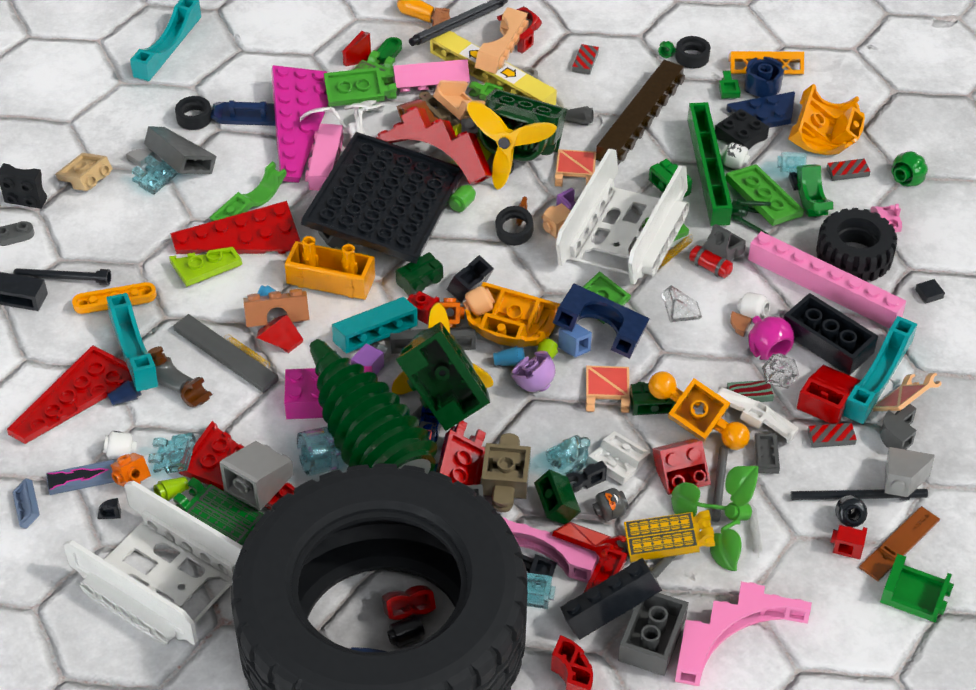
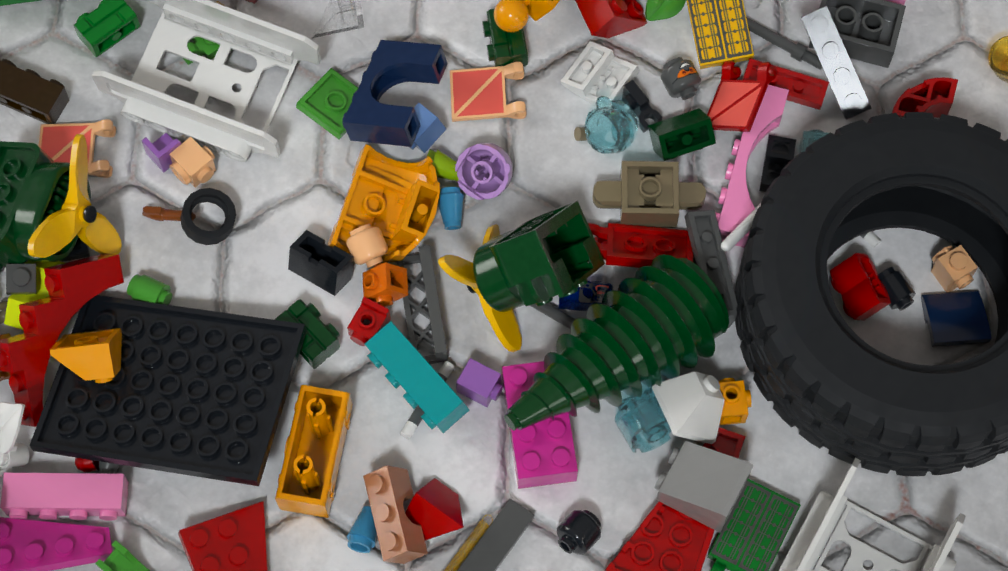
camera: 95 degrees left, 20 degrees up
(243, 409) = (579, 532): none -> black head
(314, 460) = (692, 405): none -> white slope
(412, 155) = (91, 354): none -> light orange slope

